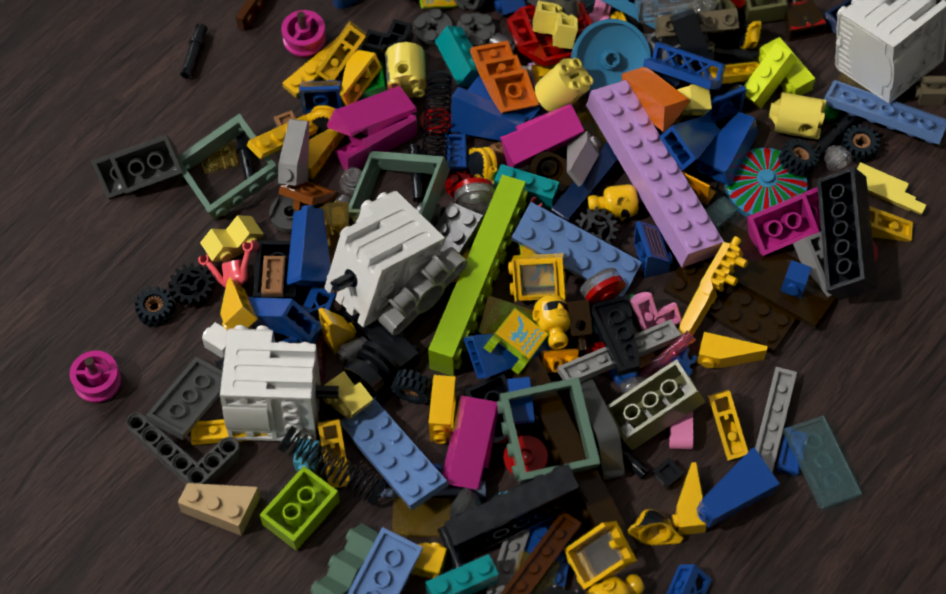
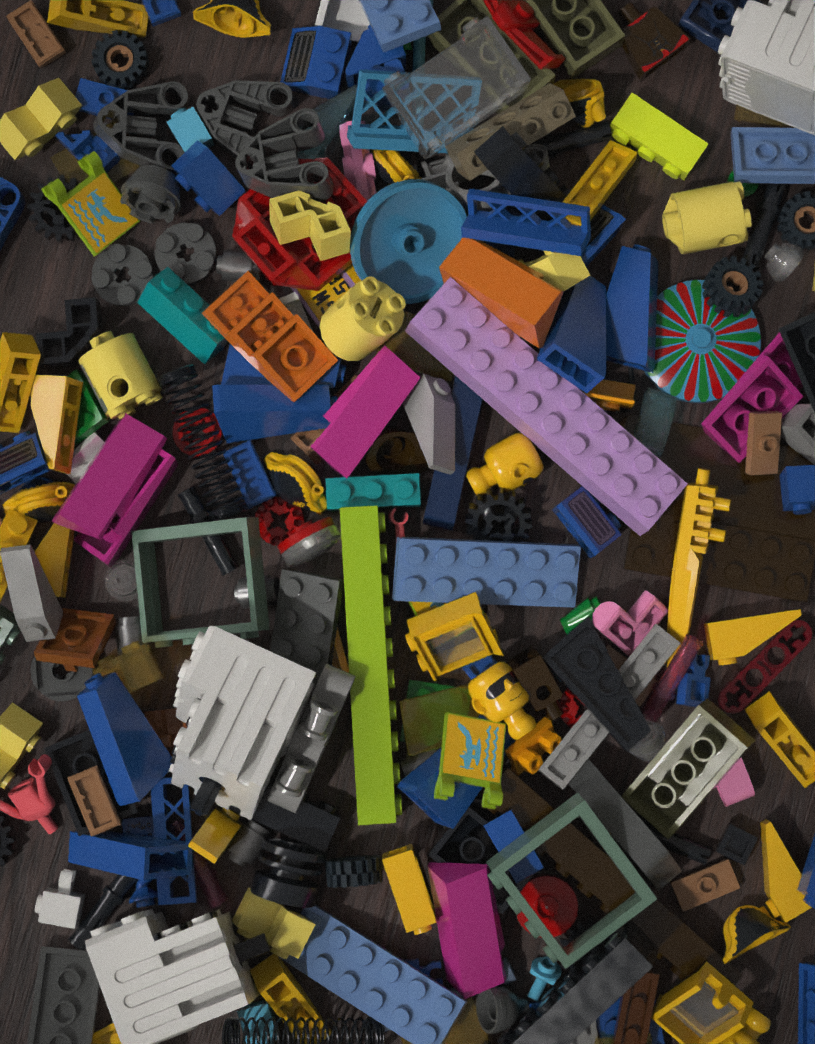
camera: 25 degrees left, 25 degrees up
(236, 307) = (66, 865): yellow slope -> none
(603, 286) = (550, 623): red piece -> none
(636, 492) = (705, 884): none -> medium nougat plate
(732, 381) = (767, 669): none -> dark red beam
(769, 75) = (643, 170): neon yellow brick -> none
(782, 246) = (763, 442): none -> medium nougat plate

